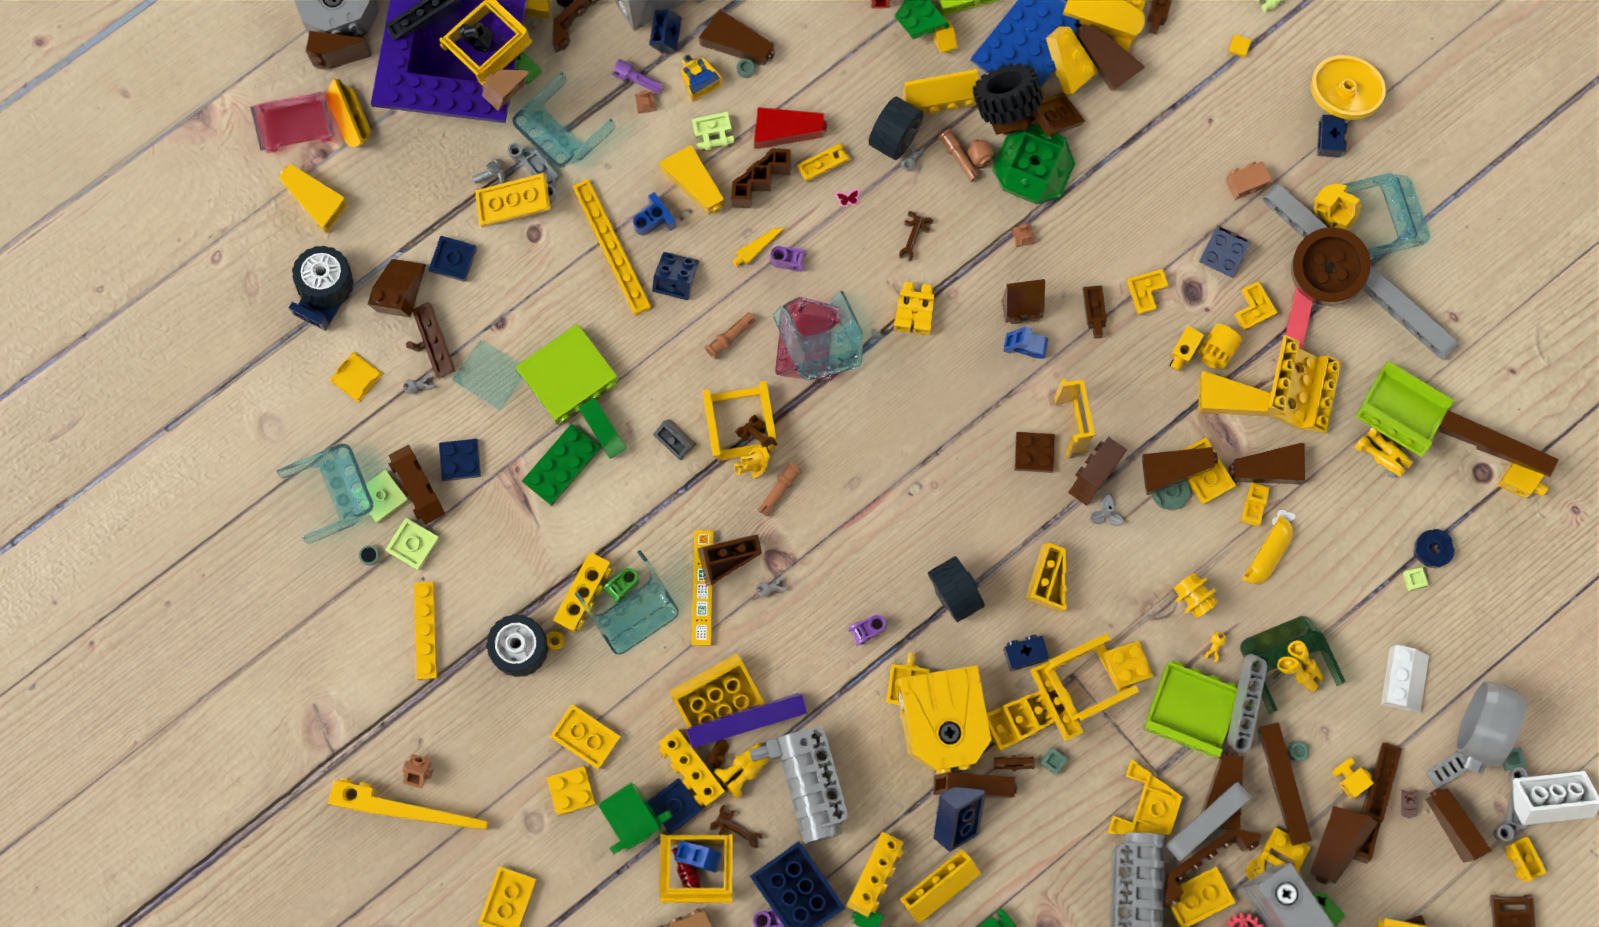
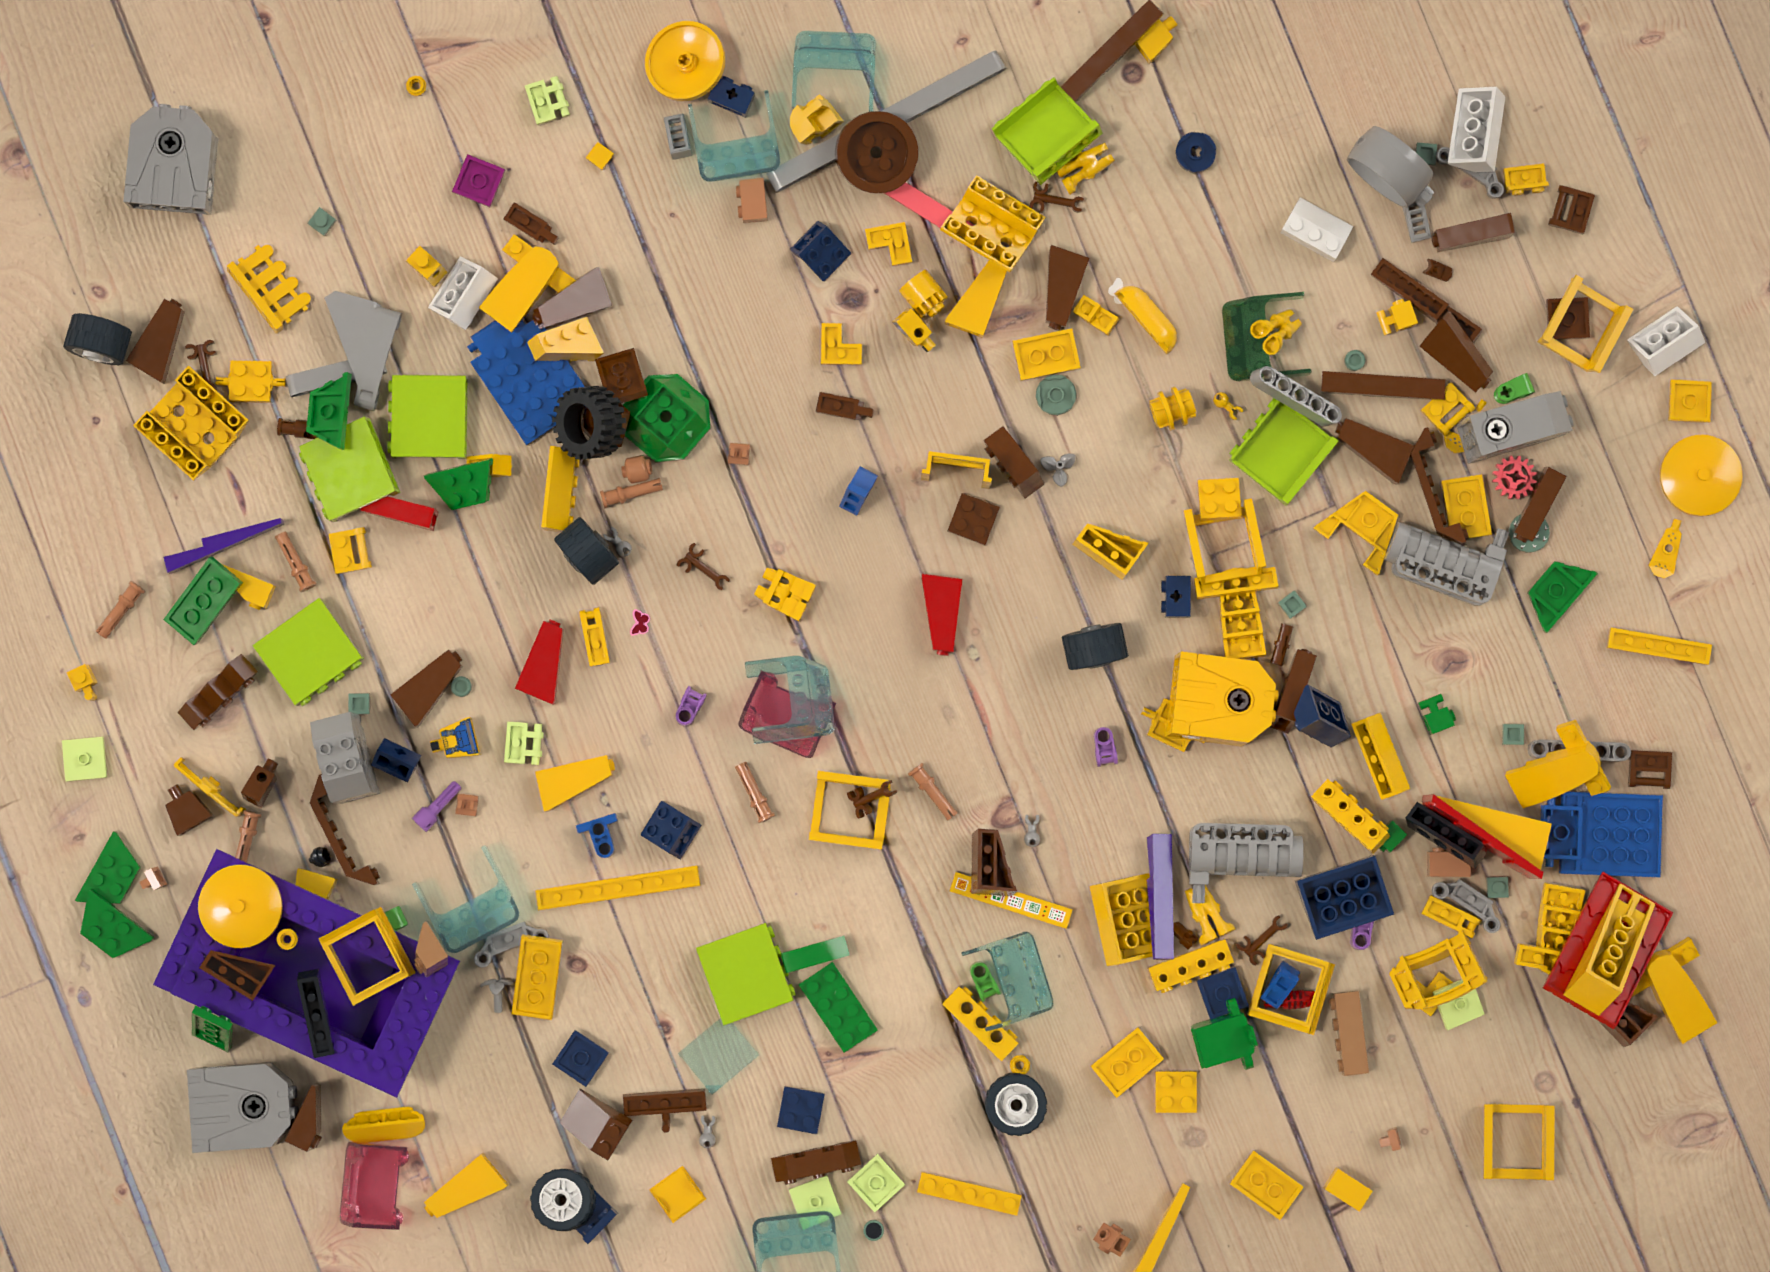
camera: 75 degrees left, 10 degrees up
(477, 36) = (362, 963): black piece -> none
(674, 439) = (846, 883): dark grey slope -> none
(751, 250) = (666, 740): yellow bar -> none
(755, 462) = (900, 806): yellow connector -> none
(759, 176) = (592, 709): reddish brown brick -> none
(945, 448) = (942, 608): none -> red slope
(1024, 301) = (817, 479): reddish brown slope -> none
(1173, 467) = (1035, 390): reddish brown slope -> none
(1208, 821) = (1399, 475): light grey beam -> none
(1269, 109) = (678, 149): none -> light grey slope
(1281, 154) = (738, 156): none -> clear light blue windscreen
(1343, 425) = (1040, 197): none -> reddish brown bar
(1415, 578) = (1219, 181): yellowish green tile -> none

